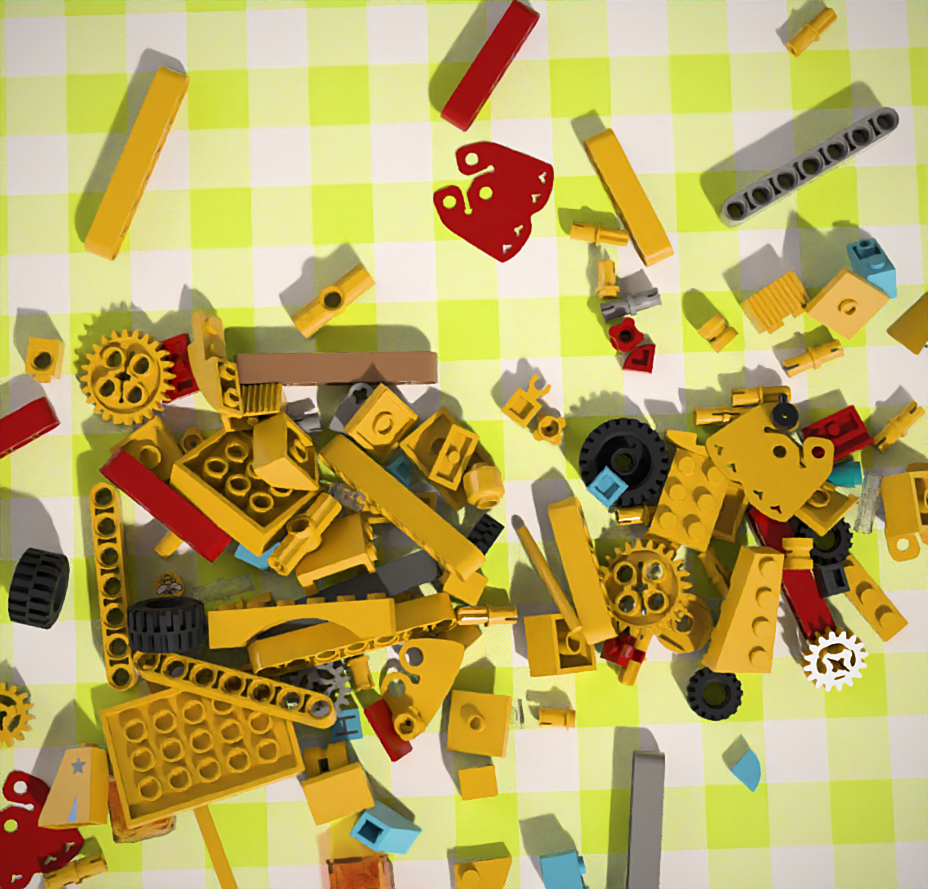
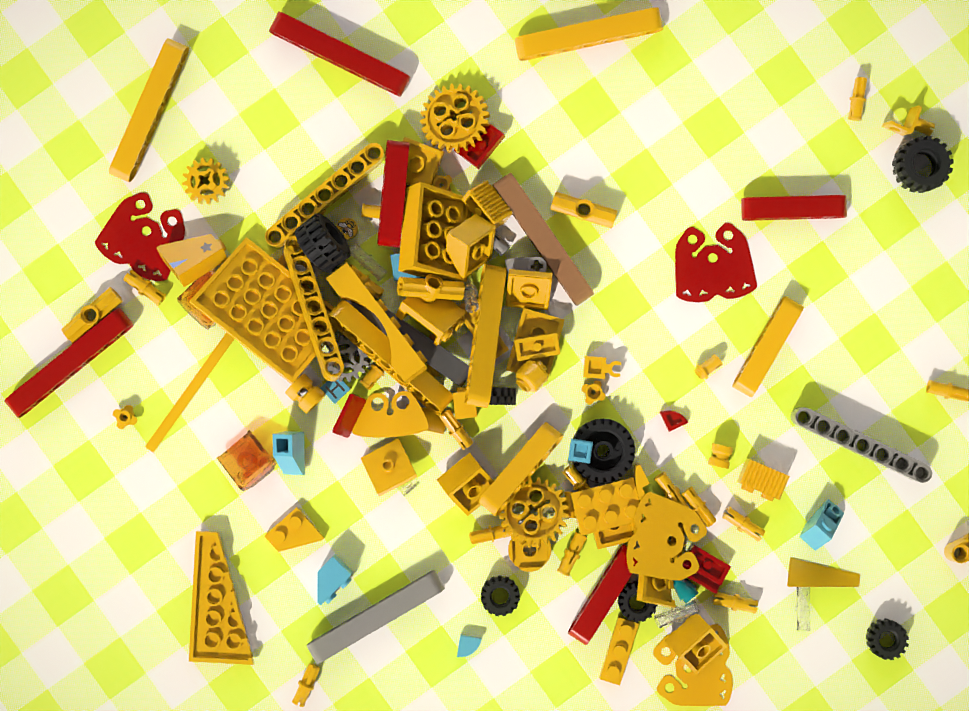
camera: 60 degrees right, 5 degrees up
(38, 347) = (437, 53): yellow brick -> none
(38, 588) = (293, 152): black tyre -> none
(209, 364) = (493, 164): yellow slope -> none
(338, 793) = (291, 412): yellow slope -> none
(400, 471) = (507, 320): medium azure tile -> none
(400, 723) = (355, 425): yellow plate -> none
(478, 782) = (354, 489): yellow panel -> none
(549, 579) = (502, 452): yellow bar -> none
(557, 717) = (423, 511): yellow pin -> none
(598, 234) = (732, 343): yellow axle -> none
(621, 649) = (488, 523): red plate -> none
(627, 327) = (687, 399): red brick -> none
(630, 304) = (702, 391): light grey pin -> none
(749, 614) = (558, 587): yellow wedge -> none
(784, 409) = (699, 526): black piece -> none
(797, 553) = (616, 592): yellow wheel -> none
(831, 580) = (614, 622): black tile -> none
(832, 670) = (567, 656): gear -> none
(847, 303) = (790, 523): yellow plate -> none

